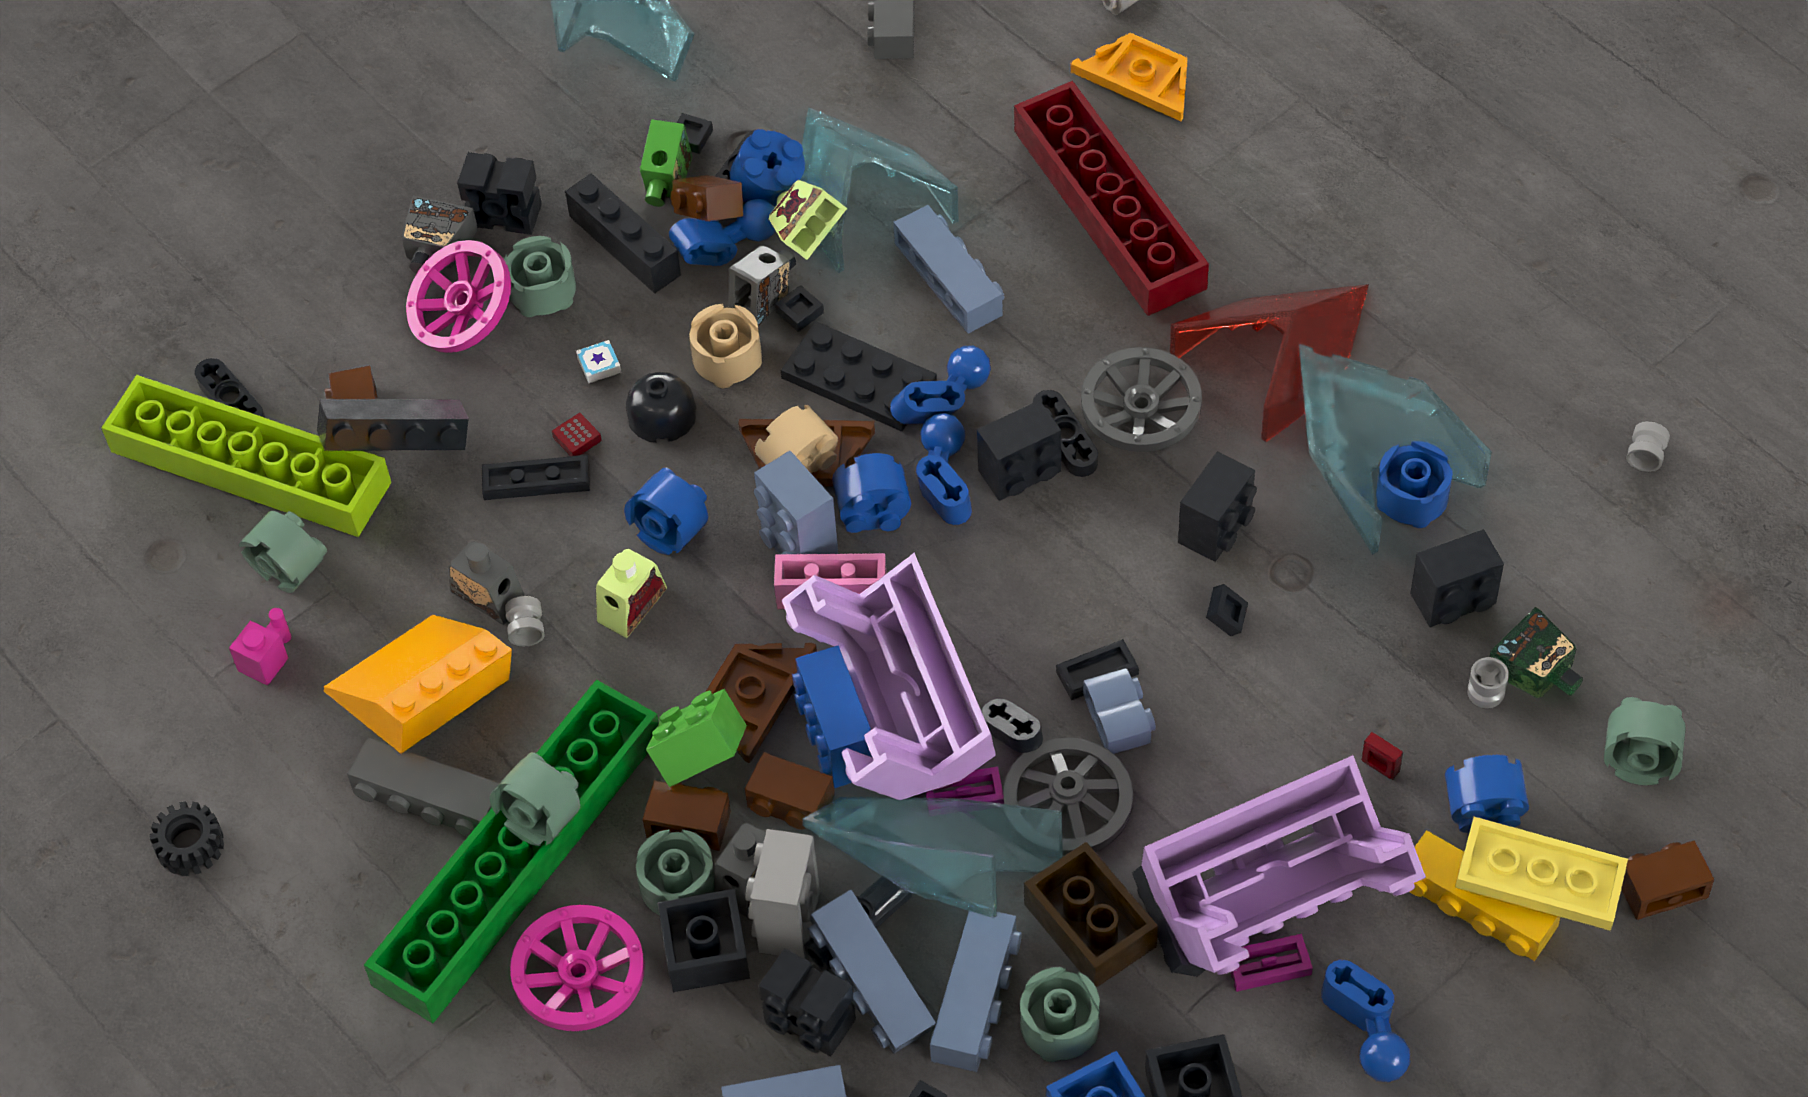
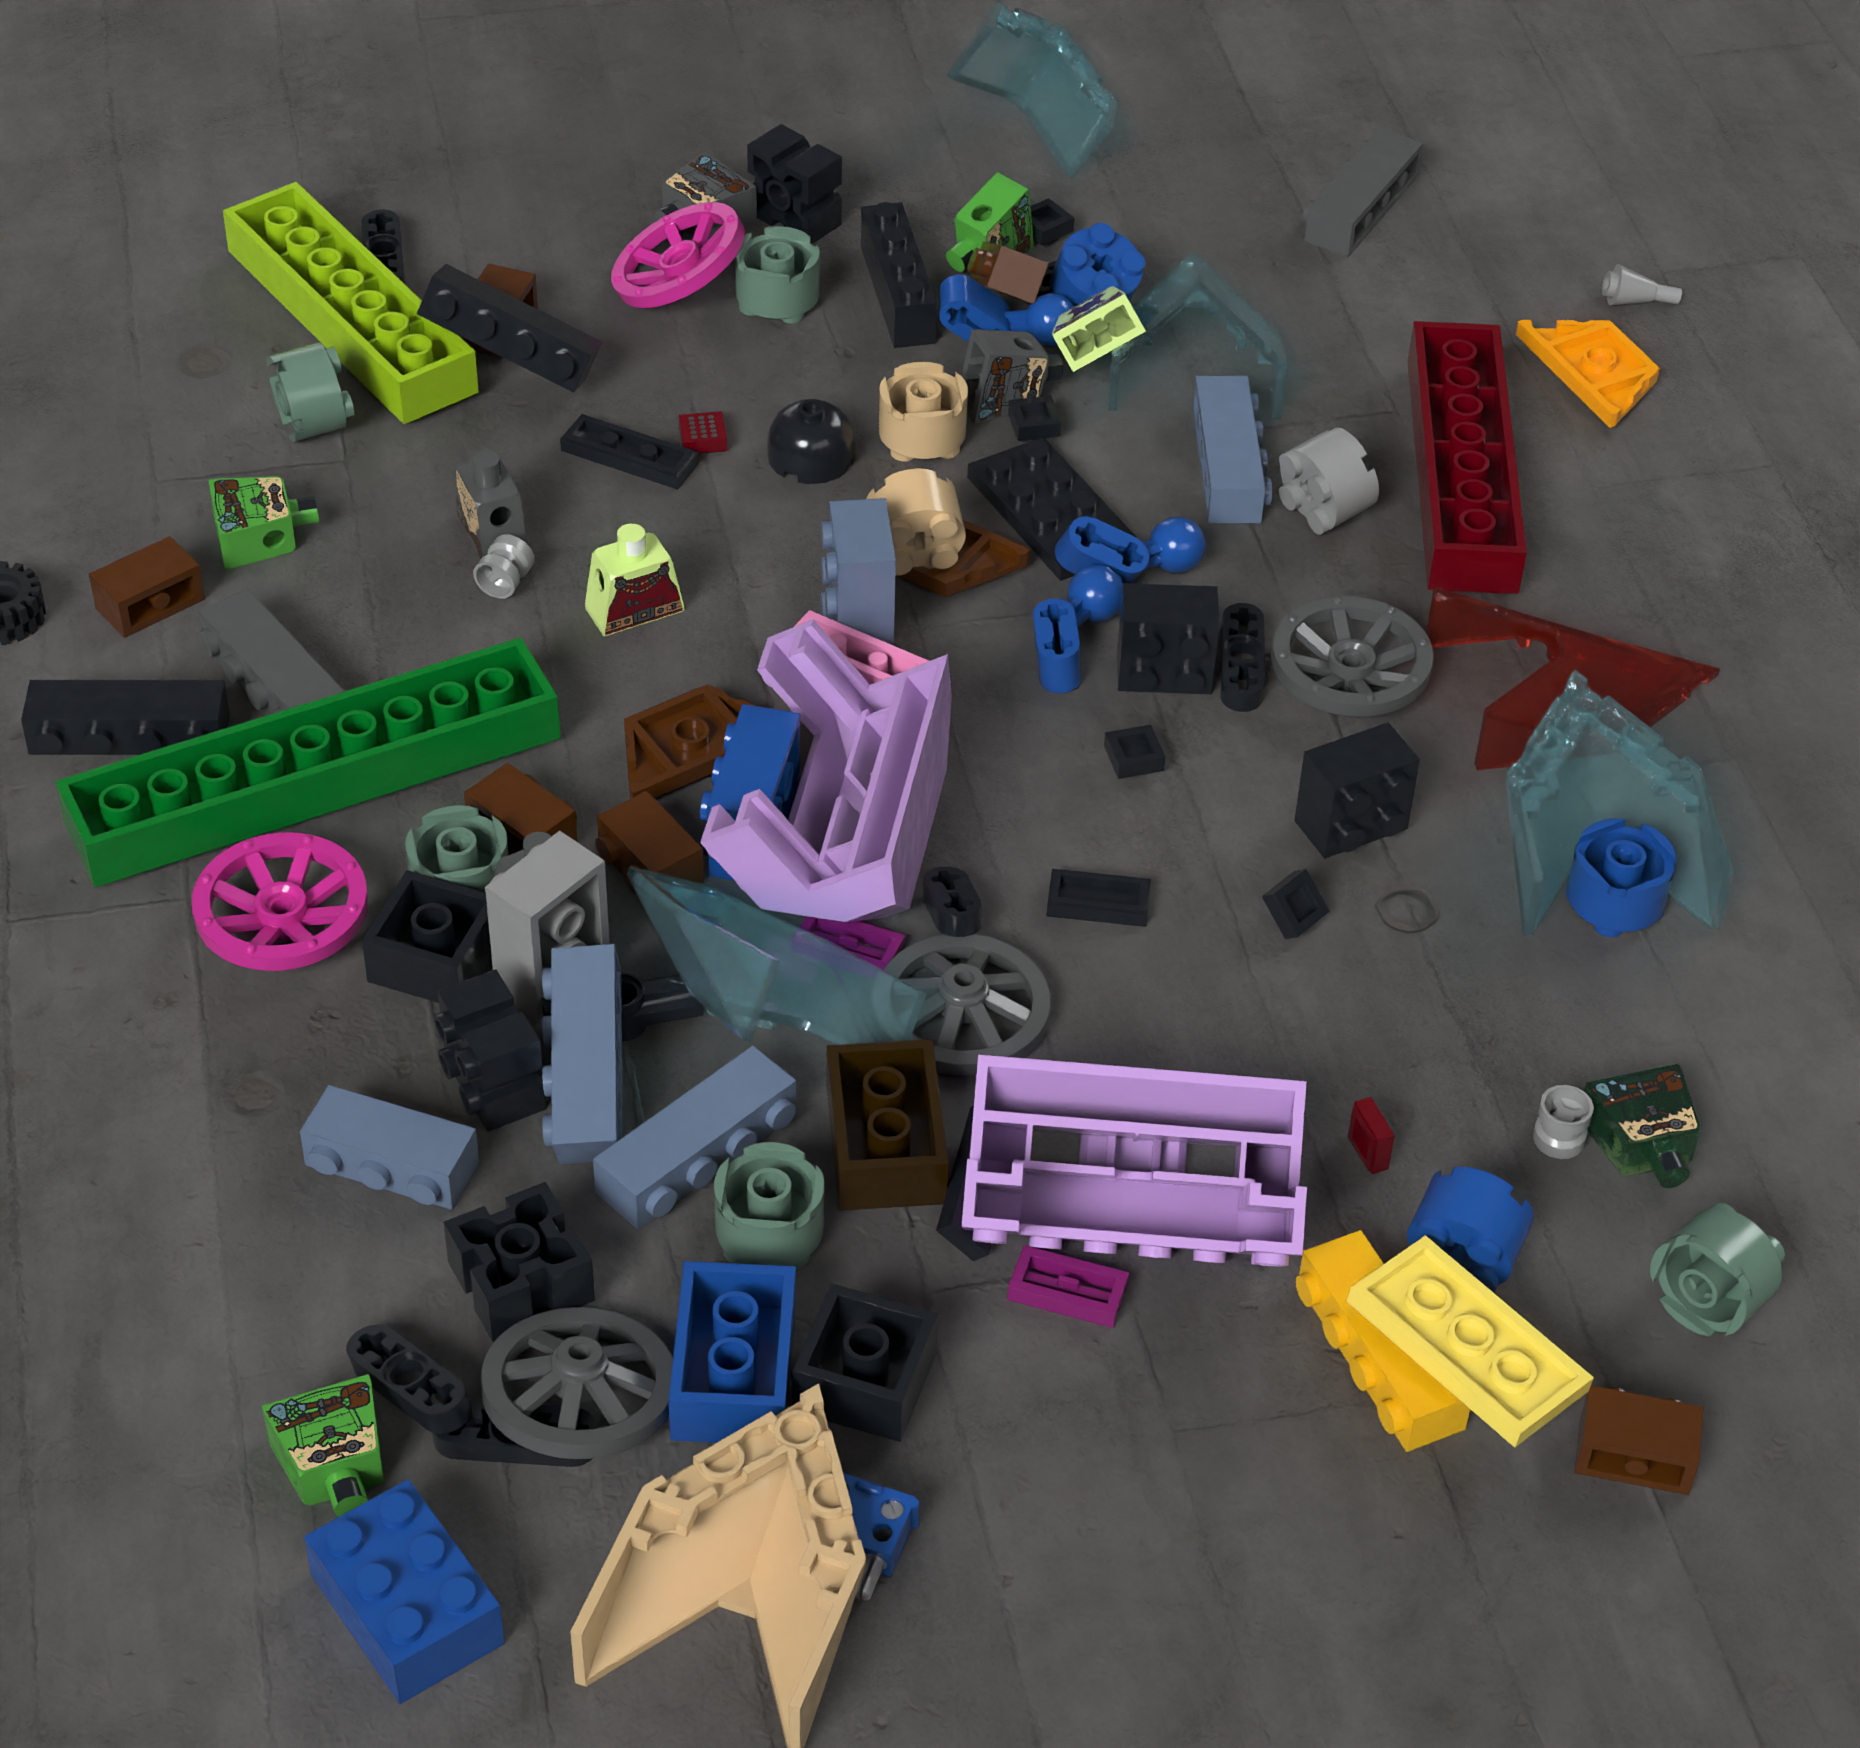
camera: 25 degrees right, 10 degrees down
(261, 650) = (215, 459): dark pink brick -> none
(283, 769) = (147, 586): none -> reddish brown brick
(310, 667) = (257, 518): none -> bright green torso
(354, 882) = (120, 715): none -> black brick
(422, 679) = (350, 569): light orange slope -> none
(536, 800) = (349, 701): sand green brick -> none
(598, 361) = (781, 379): white tile -> none
(667, 512) = (732, 529): blue brick -> none
(696, 736) = (580, 734): bright green brick -> none
(872, 493) = (968, 607): blue brick -> none
(1036, 265) = (1327, 479): none -> light grey brick
(1048, 546) = (1134, 751): none -> black plate
(1117, 711) = (1086, 944): sand blue brick -> none
(1368, 1006) = (1150, 1386): blue beam -> none
(1457, 578) = (1599, 989): black brick -> none

